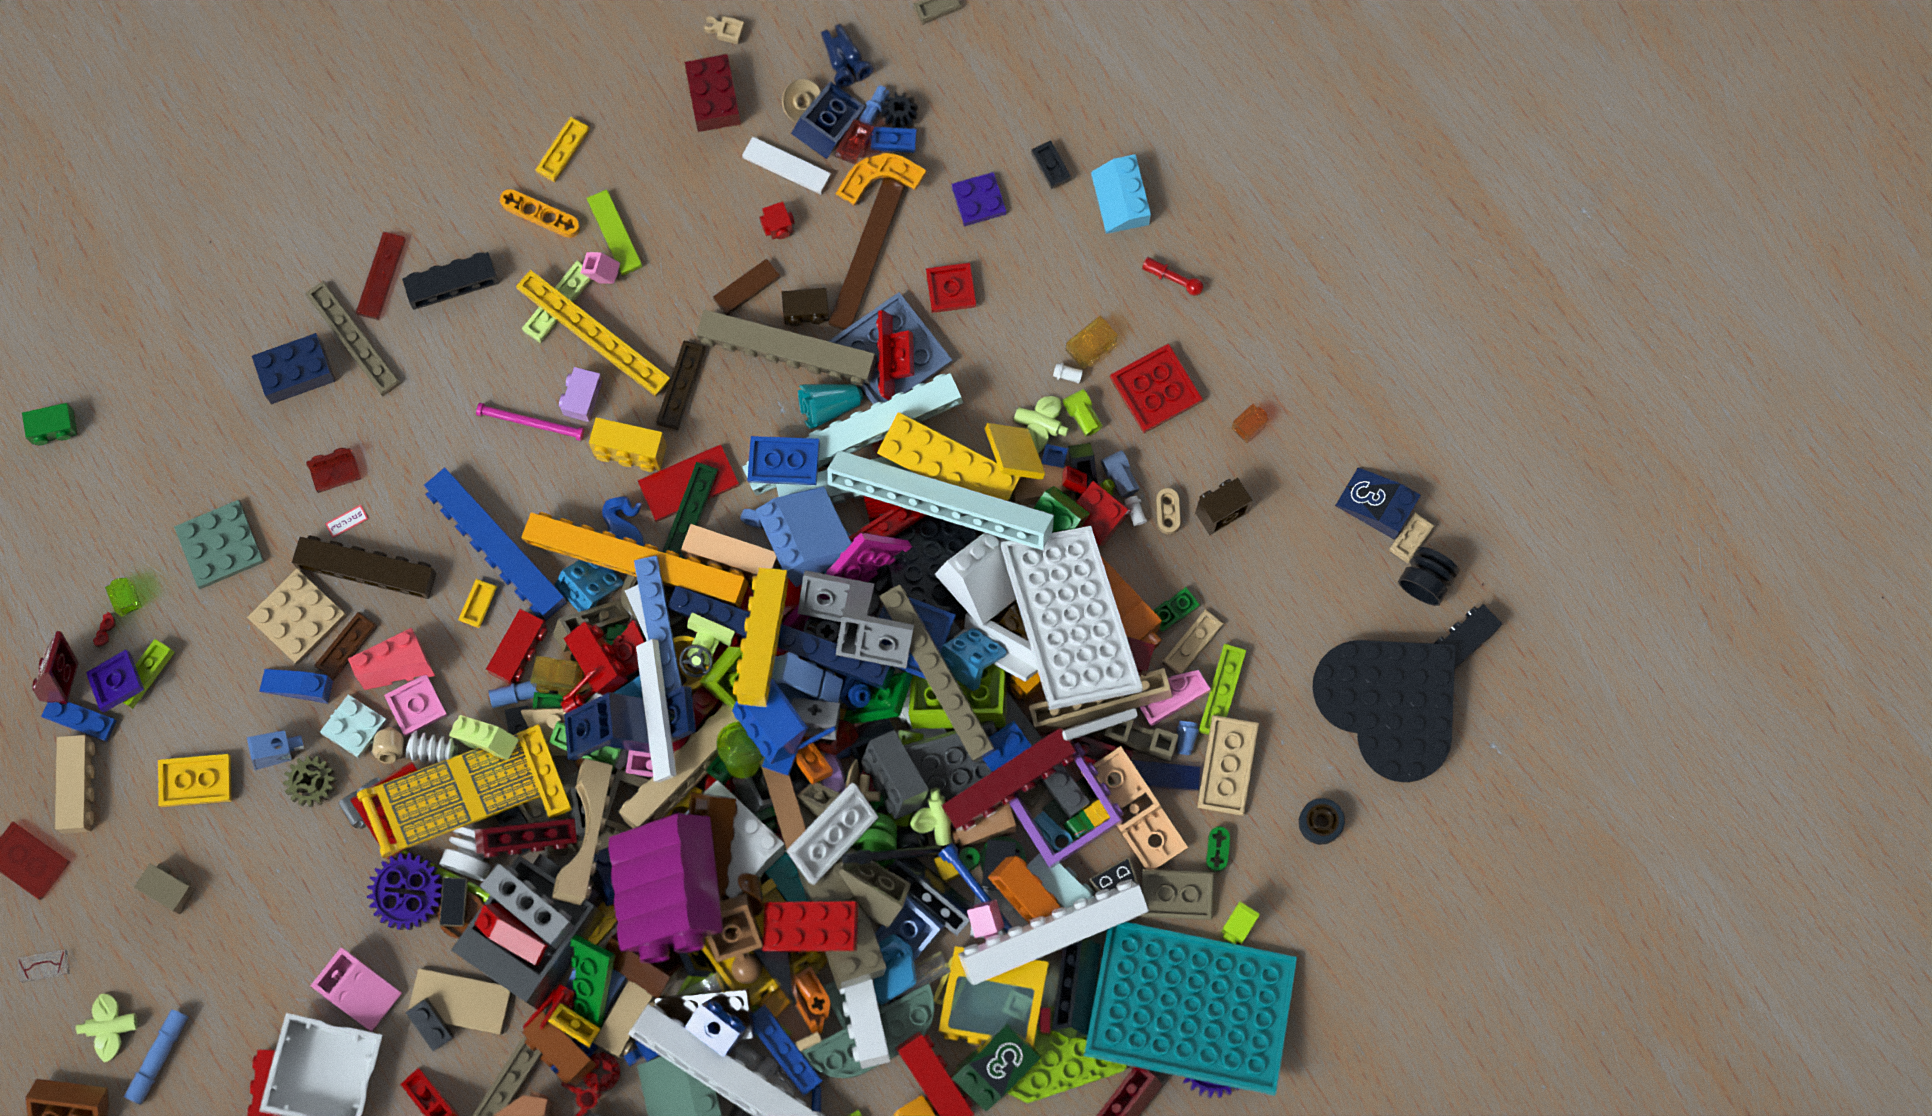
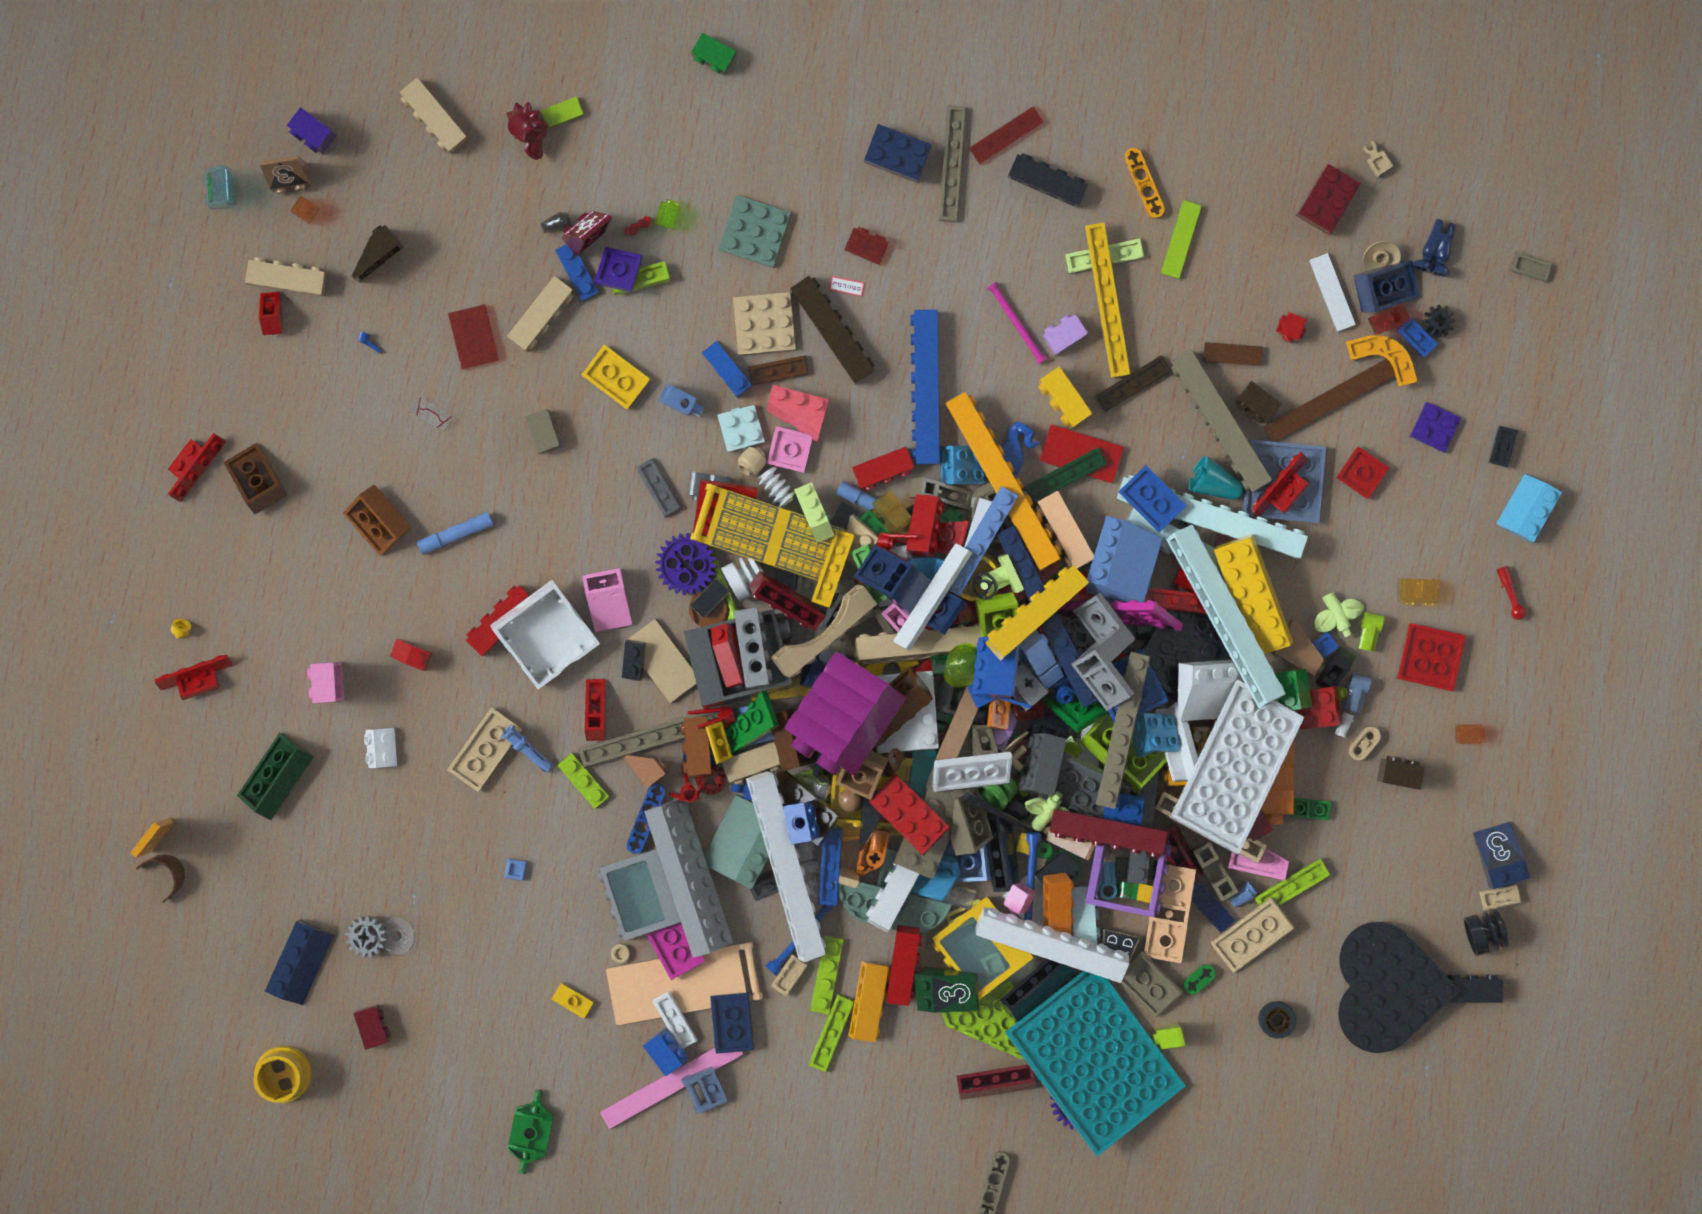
camera: 40 degrees right, 15 degrees up
(21, 691) = (556, 222): none -> clear smoke cone
(107, 1026) = (441, 487): yellowish green plant -> none
(317, 776) = (683, 449): olive gear -> none
(320, 846) = (658, 487): none -> flat silver tile
(477, 603) = (883, 416): yellow tile -> none
(562, 149) = (1197, 150): yellow tile -> none
(600, 268) = (1150, 259): bright pink brick -> none
(751, 518) = (1100, 514): medium blue tile -> none
(874, 105) = (1425, 302): medium blue axle -> none
(1014, 451) = (1301, 624): yellow tile -> none
(1045, 1021) = (1000, 989): dark red tile -> none
(1067, 373) = (1384, 596): white pin -> none
(1074, 480) = (1322, 674): red plate -> none
(1099, 723) = (1192, 845): white tile -> none
(1192, 642) = (1302, 839): tan tile -> none

